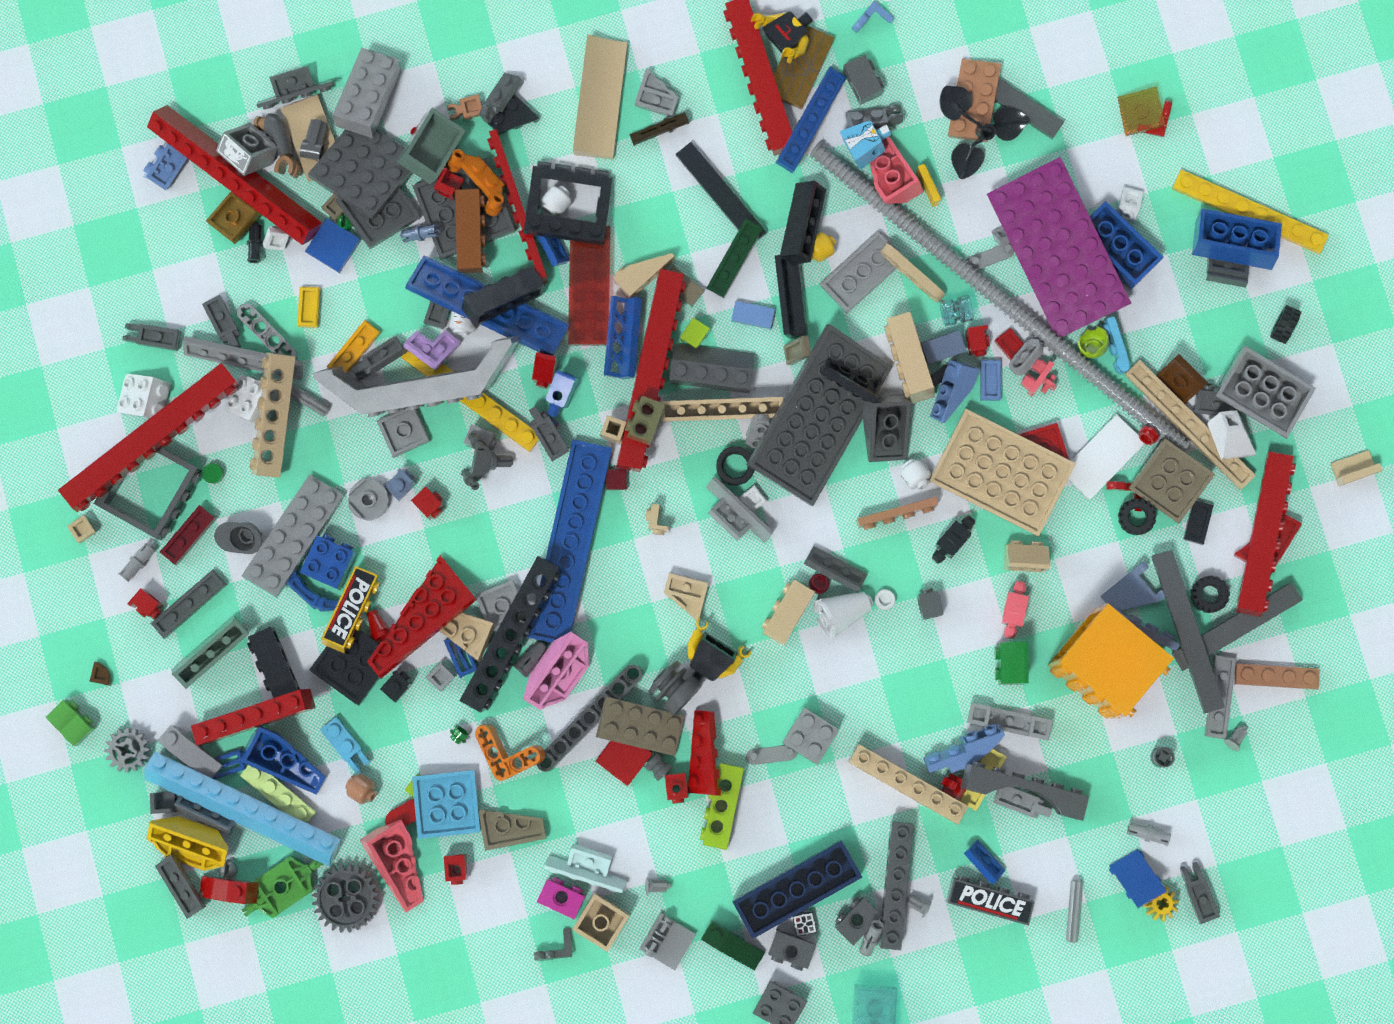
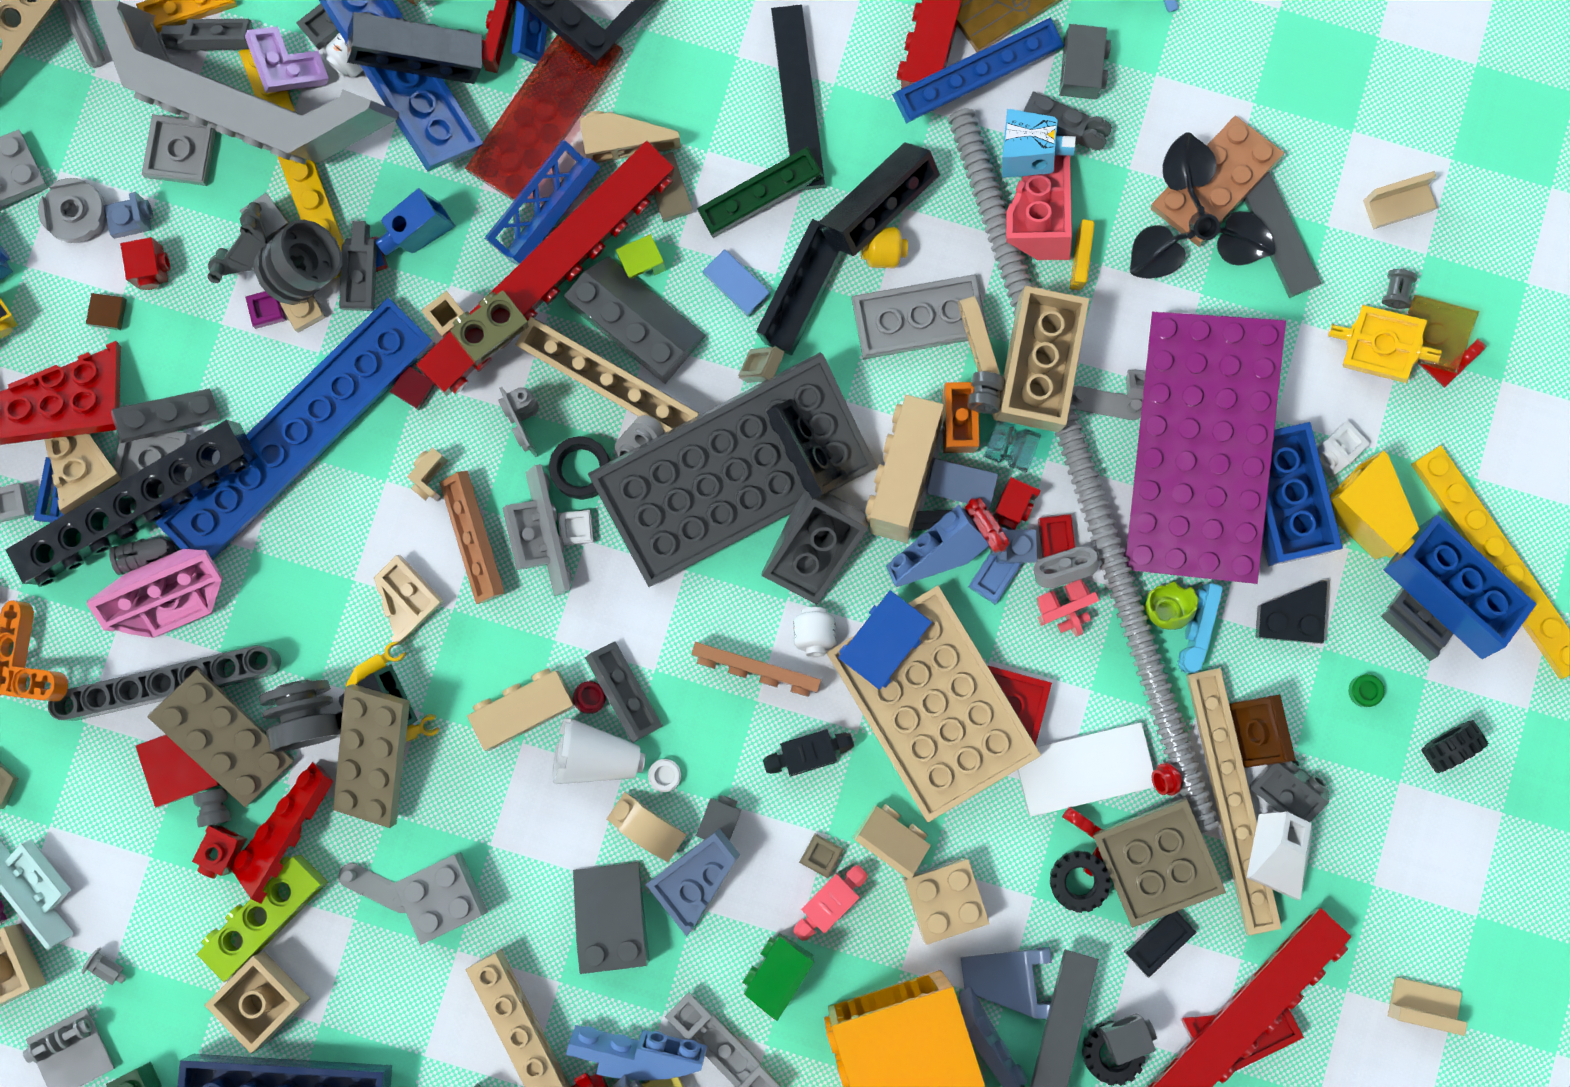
camera: 25 degrees right, 0 degrees up
(422, 543) = (106, 311): none -> reddish brown tile
(496, 576) = (165, 415): none -> dark grey plate
(508, 487) = (264, 310): none -> magenta tile
(517, 450) = (298, 262): none -> dark grey wheel
(529, 475) = (303, 314): none -> tan plate
(544, 370) = (408, 176): red slope -> none
(682, 454) = (517, 407): none -> light grey hinge
(701, 538) = (471, 537): none -> nougat plate
(727, 684) = (371, 755): none -> dark tan plate
(750, 849) = (257, 1002): none -> tan brick
(893, 631) = (646, 827): none -> tan brick
(905, 690) = (610, 918): none -> dark grey slope
(923, 315) = (958, 420): none -> orange brick
(927, 291) = (986, 392): none -> dark grey wheel
(936, 642) = (694, 879): none -> sand blue wing
(945, 255) = (1042, 359): none -> tan brick
(956, 454) = (884, 640): none -> blue piece
(971, 360) = (987, 525): none -> red axle
(992, 363) = (1021, 547): none -> sand blue bracket
(994, 589) = (821, 855): none -> dark tan tile
(1074, 570) = (946, 900): none -> tan brick
(1078, 51) = (1400, 200): none -> tan panel
(1112, 104) = (1405, 279): none -> dark grey bush
(1118, 134) = (1384, 343): none -> yellow plate
(1161, 308) = (1294, 616): none -> black wing
(1166, 225) = (1375, 508): none -> yellow slope
(1212, 579) = (1129, 1038): none -> dark grey brick
(1222, 324) = (1366, 690): none -> green tile
(1265, 391) = (1367, 822): light grey slope -> none

